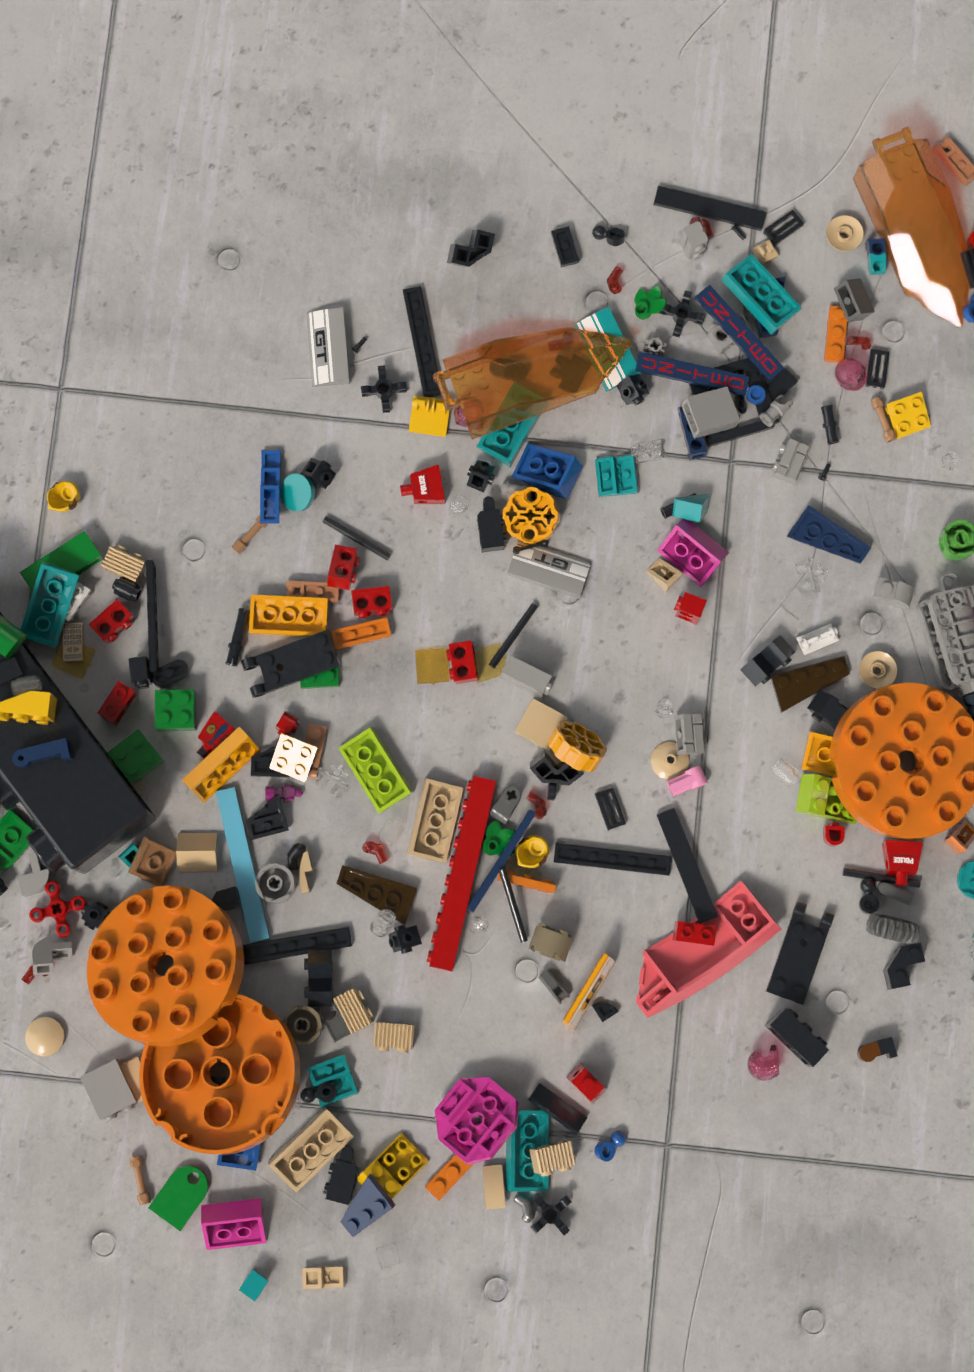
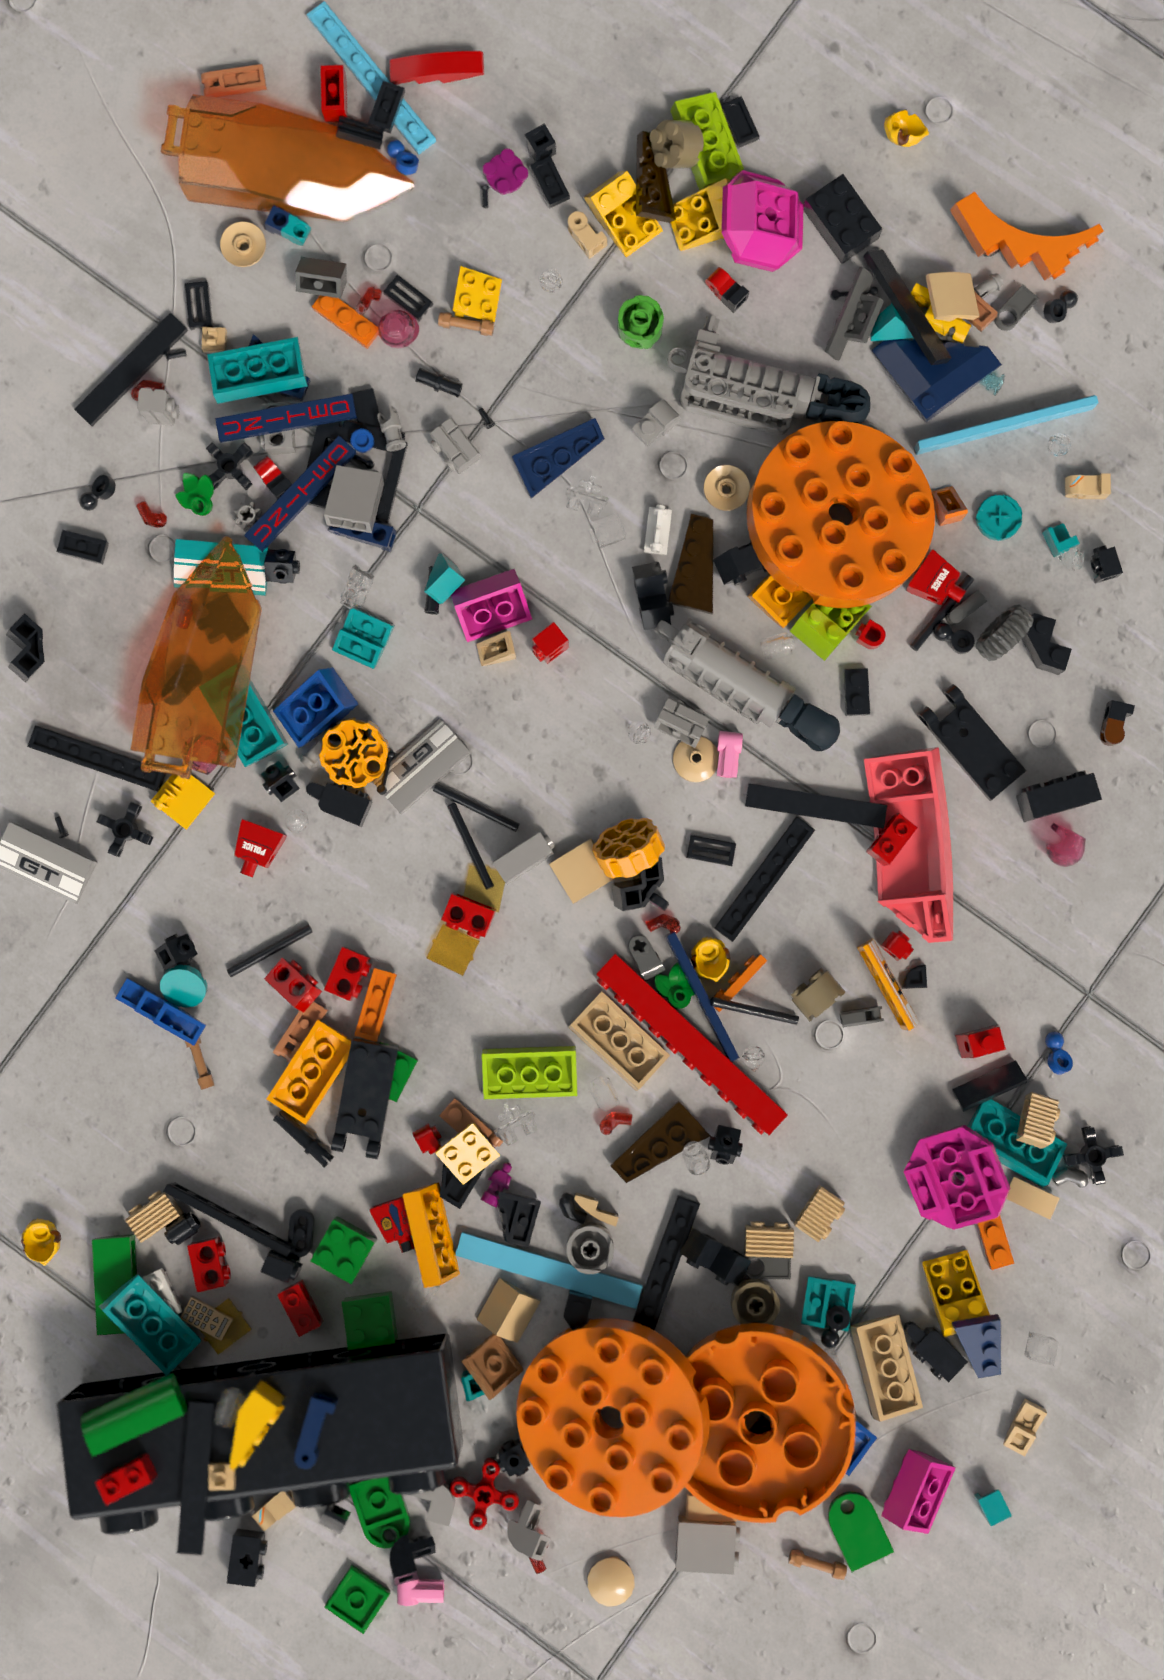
camera: 50 degrees left, 5 degrees up
(543, 624) = (476, 807): none -> black piece
(620, 982) = (897, 945): none -> red plate
(692, 347) = (272, 477): none -> leg
(743, 762) = (744, 685): none -> light grey piece
(786, 848) = (856, 692): none -> black plate

